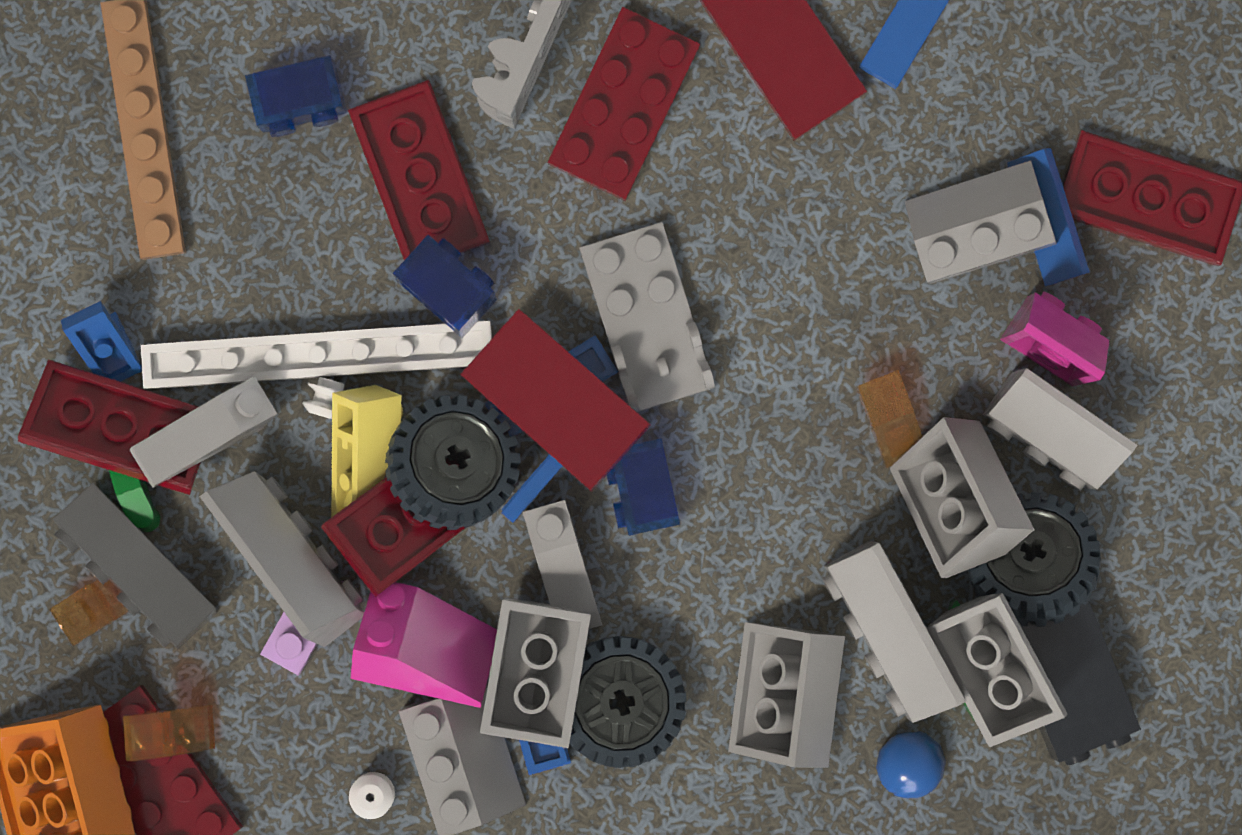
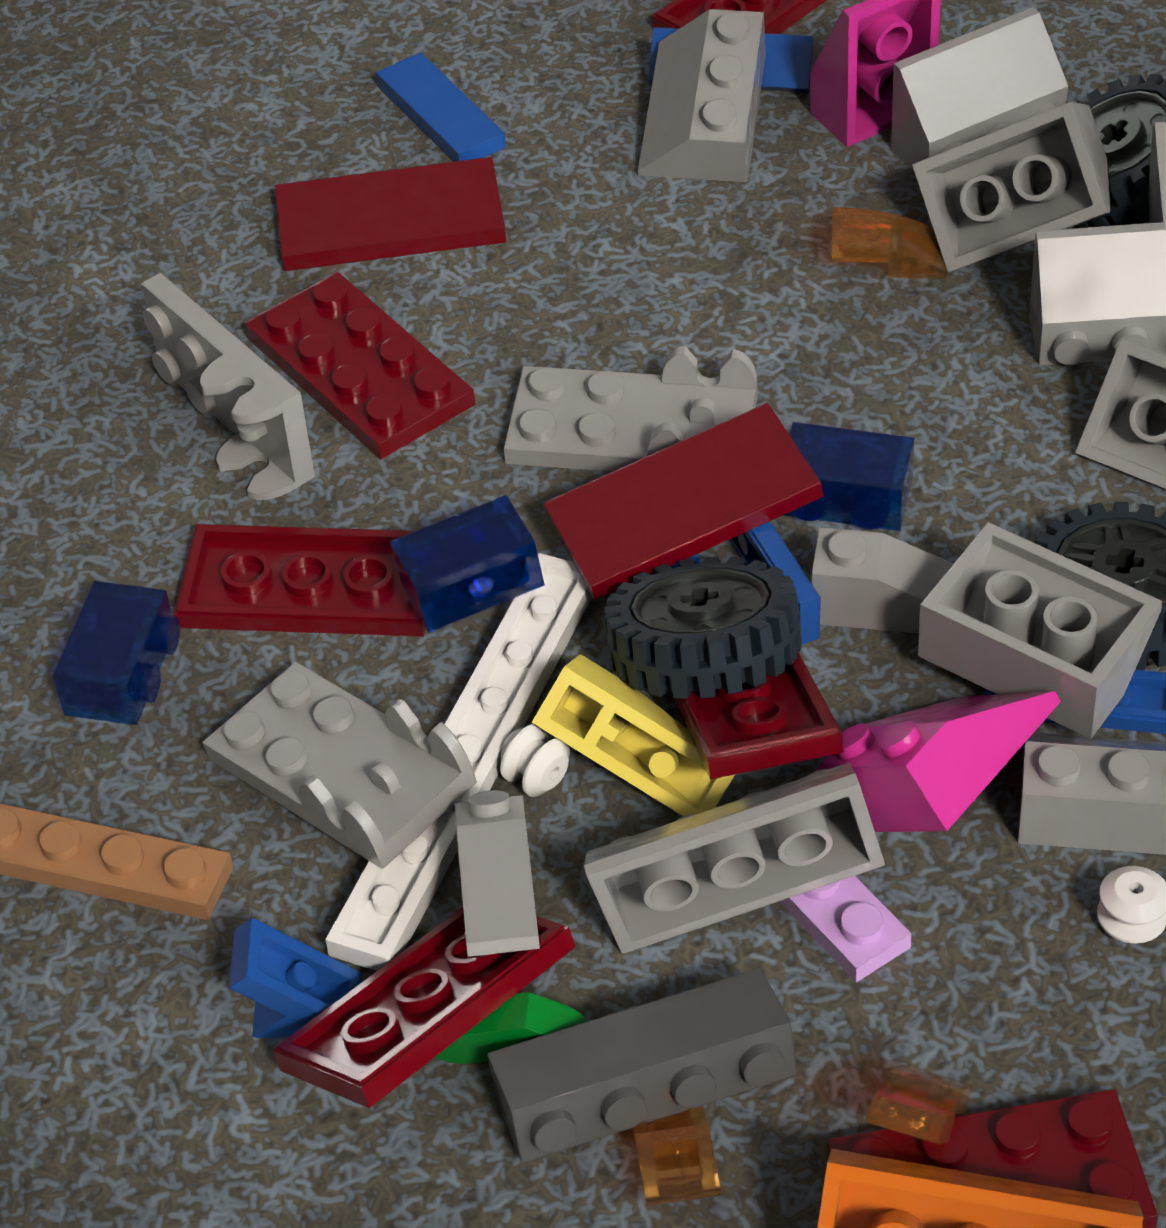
camera: 55 degrees left, 40 degrees down
(268, 283) = (344, 763): none -> light grey hinge

